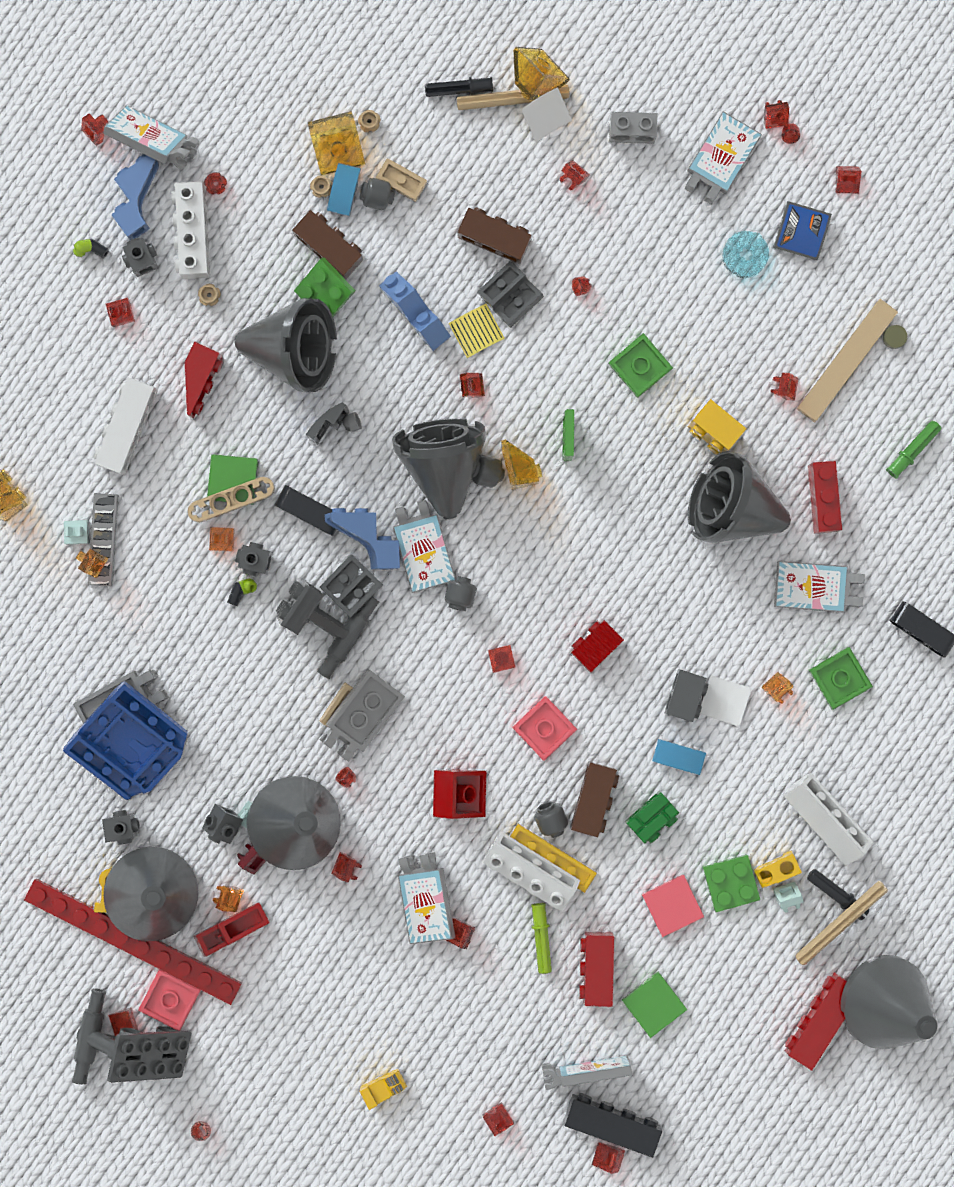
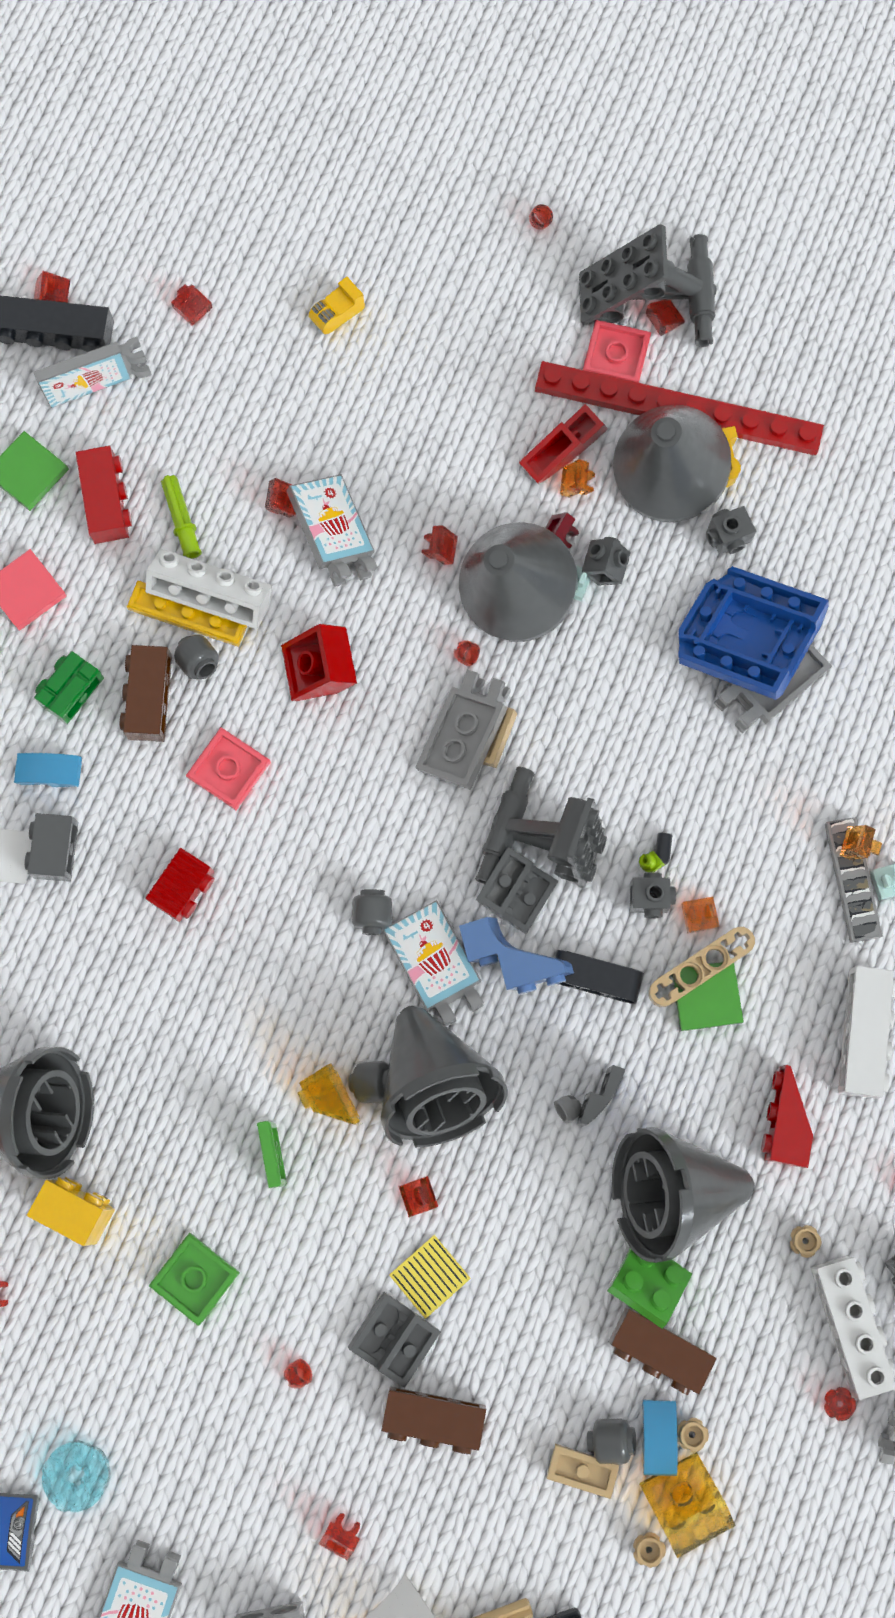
camera: 165 degrees right, 10 degrees down
(415, 310) = (520, 1283): medium blue arch -> none
(501, 658) = (301, 842): clear red plate -> none

